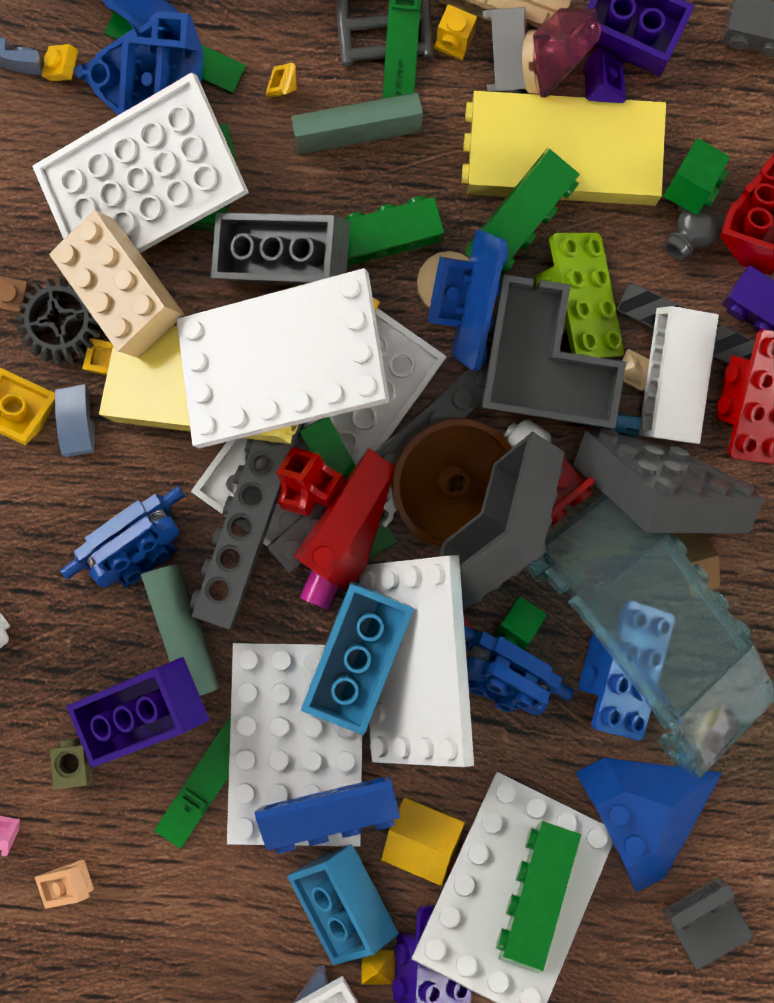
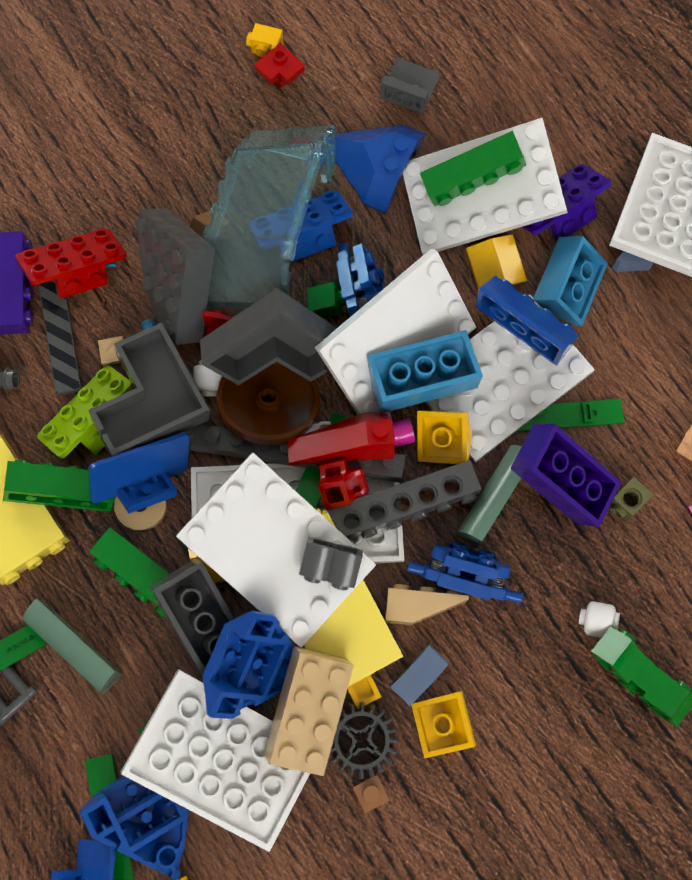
camera: 130 degrees left, 10 degrees down
(138, 467) = (414, 606): none -> tan slope
(200, 252) = (246, 664): none -> blue wedge
(221, 397) = (331, 563): none -> dark grey brick
(278, 628) = (443, 436): none -> yellow slope
(282, 80) = (79, 724): yellow slope -> none
(379, 968) = (590, 235): yellow slope -> none
(678, 374) = (96, 320): white brick -> none

